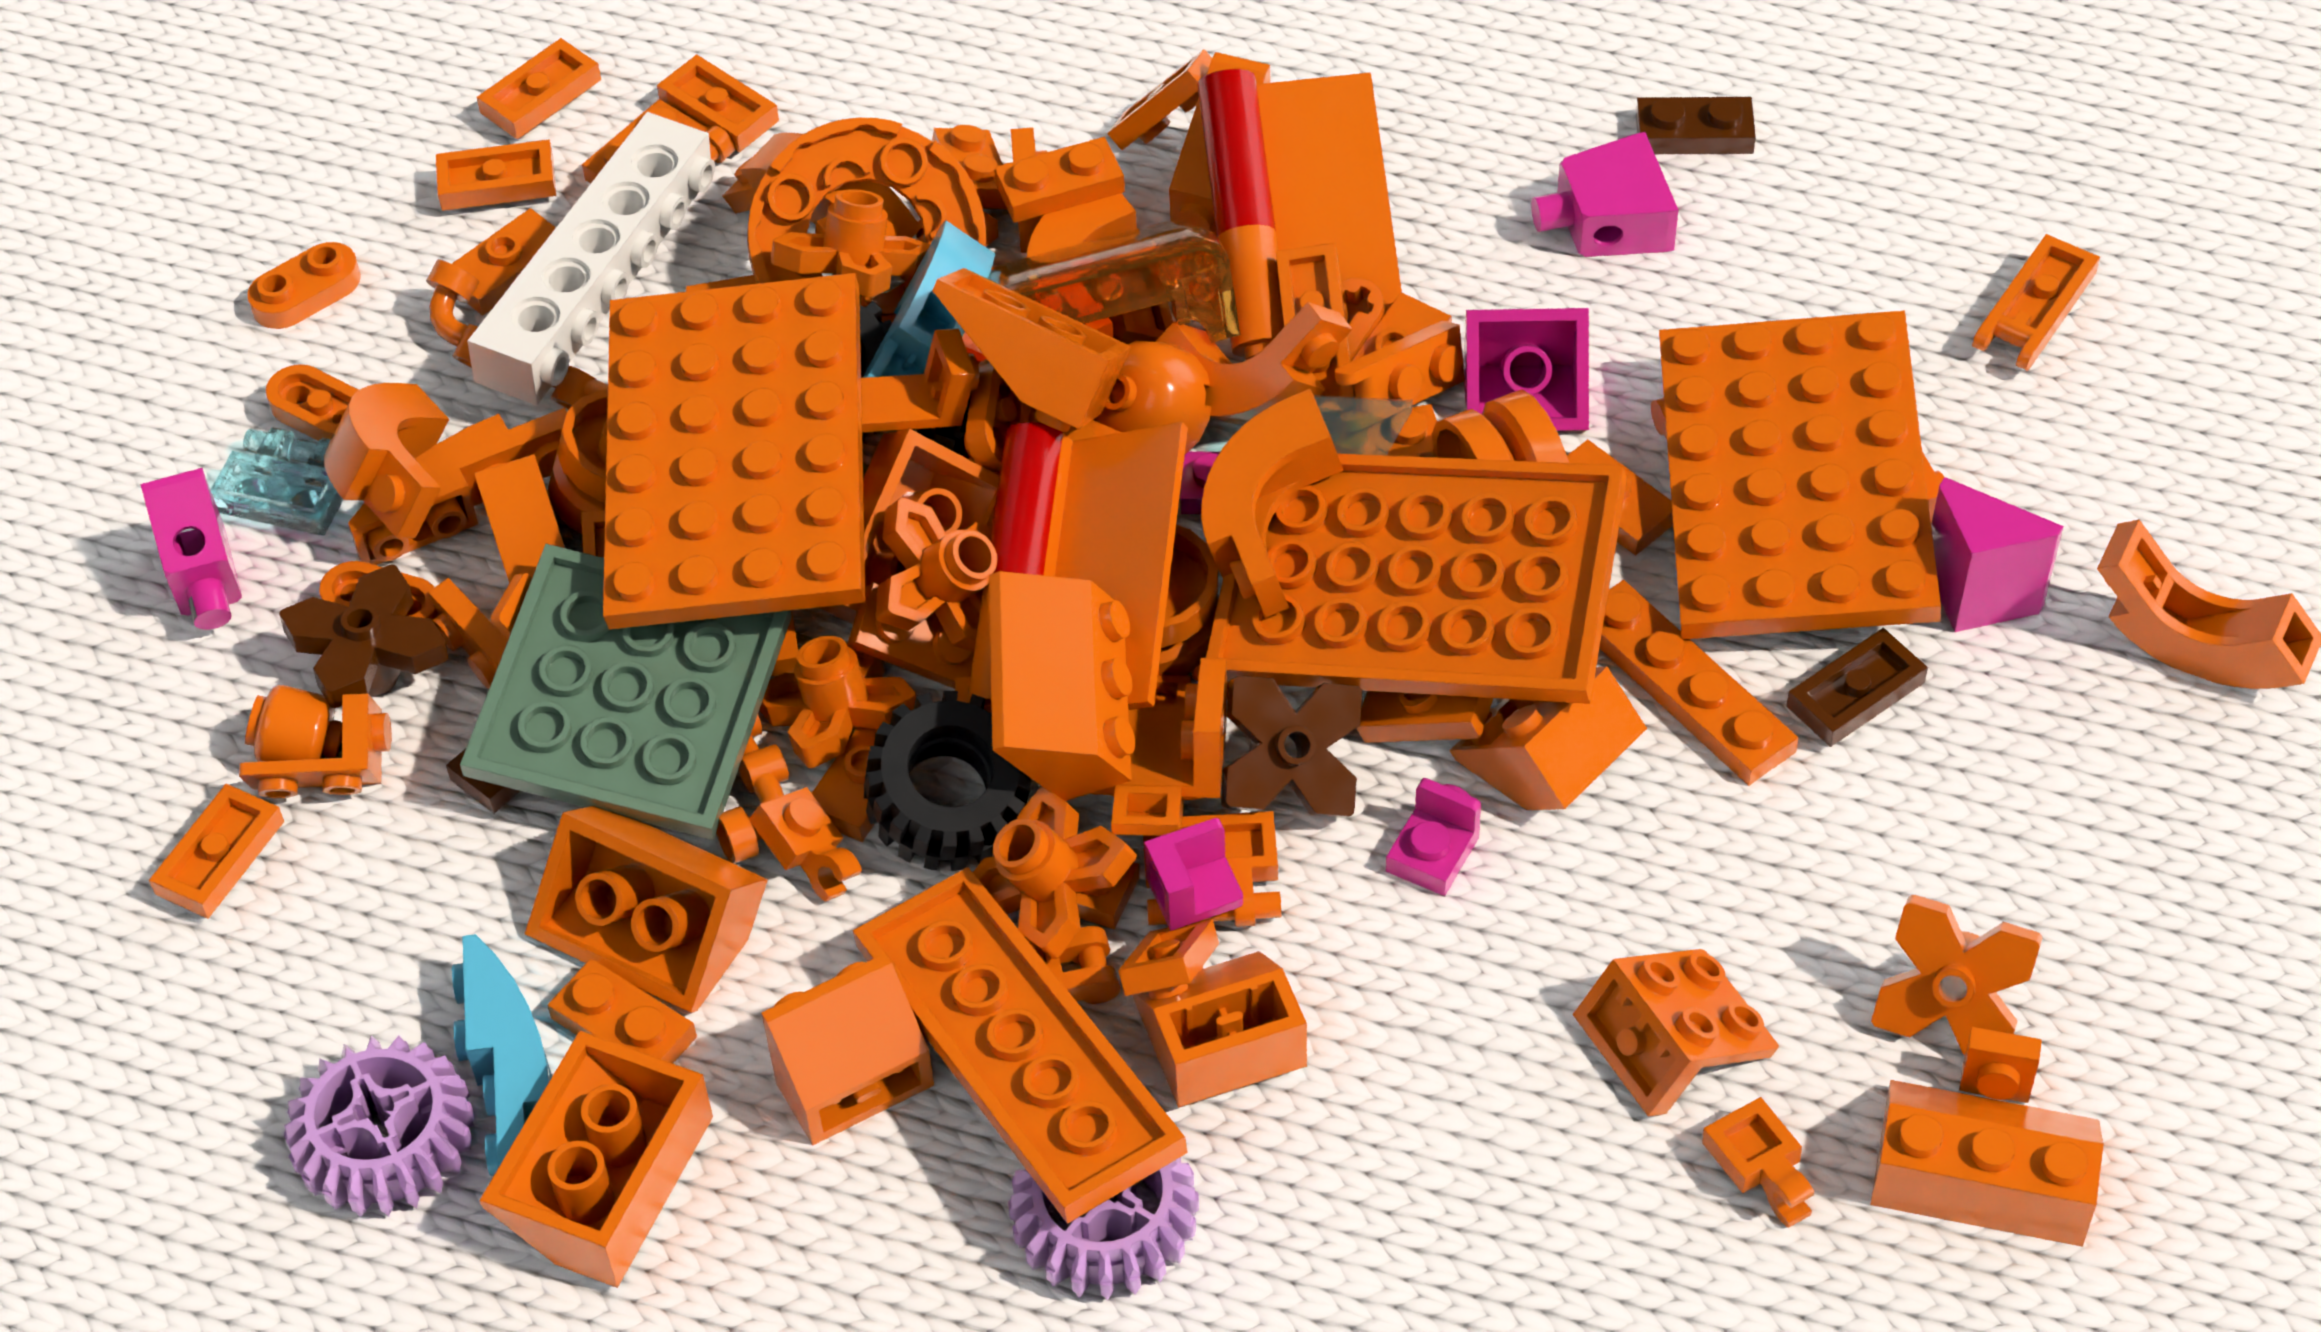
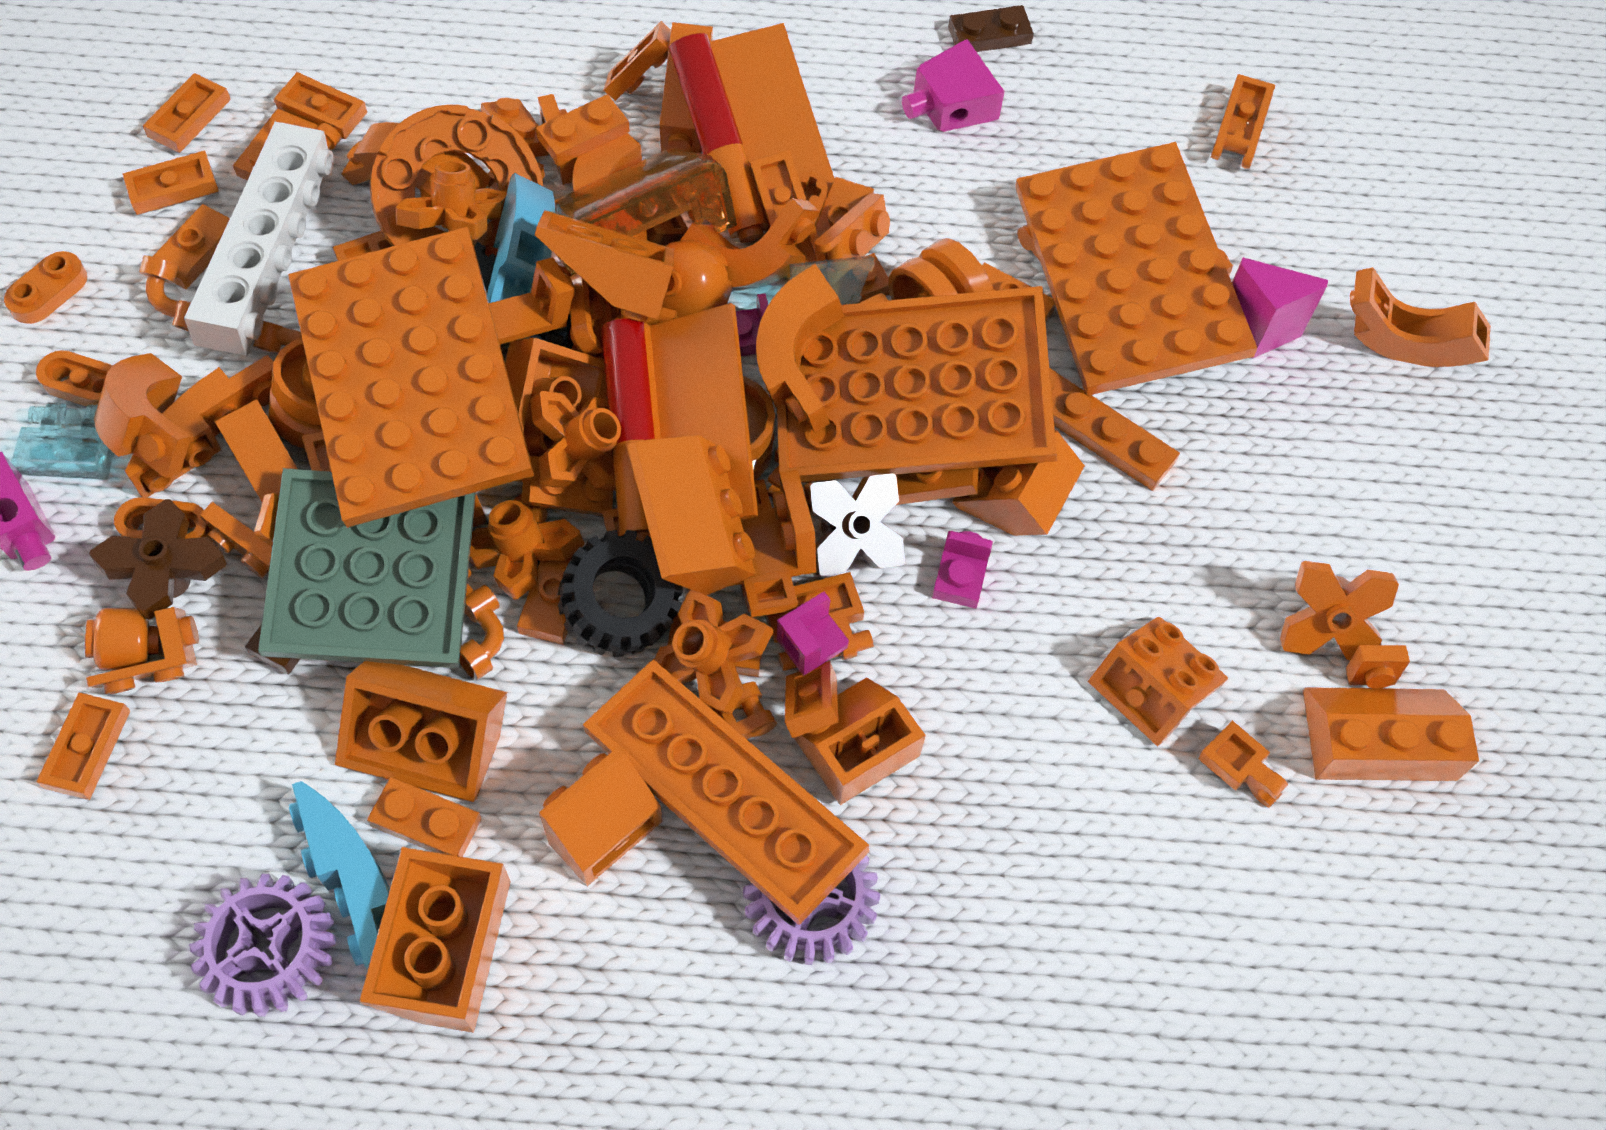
camera: 20 degrees left, 10 degrees up
(805, 836) = (524, 652): orange plate -> none
(1530, 351) = (931, 211): dark pink slope -> none
(1856, 687) = (1207, 410): reddish brown plate -> none

